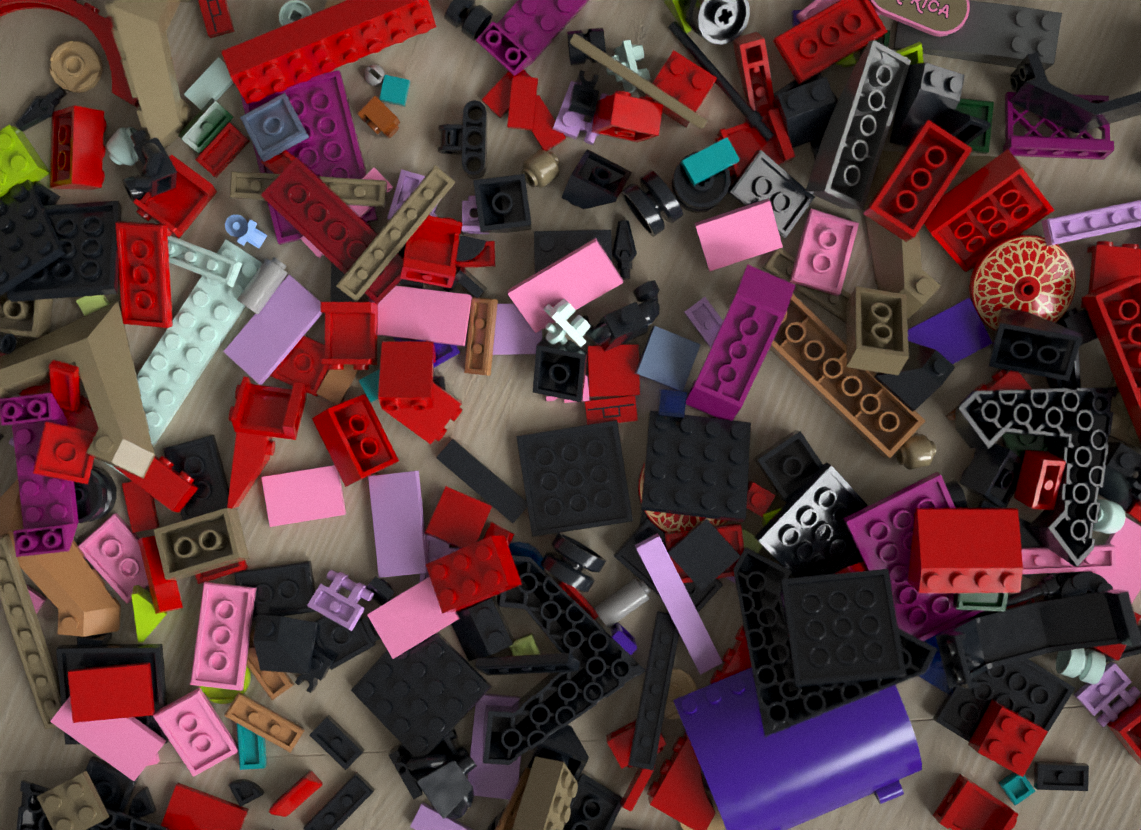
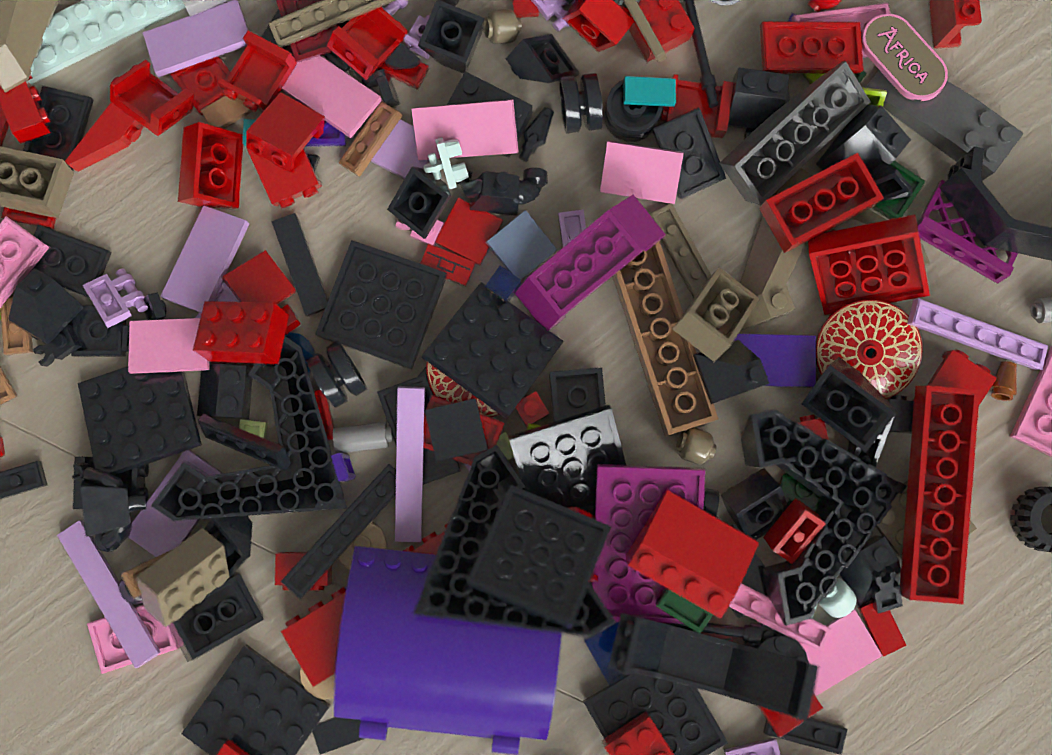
camera: 25 degrees right, 5 degrees down
(303, 495) = (138, 192): bright pink tile -> none
(337, 742) = (37, 422): black plate -> none
(635, 788) = (279, 611): red tile -> none
(754, 71) = (730, 44): red slope -> none
(824, 252) = (708, 228): bright pink tile -> none
(1085, 664) = (749, 726): light aqua wheel -> none

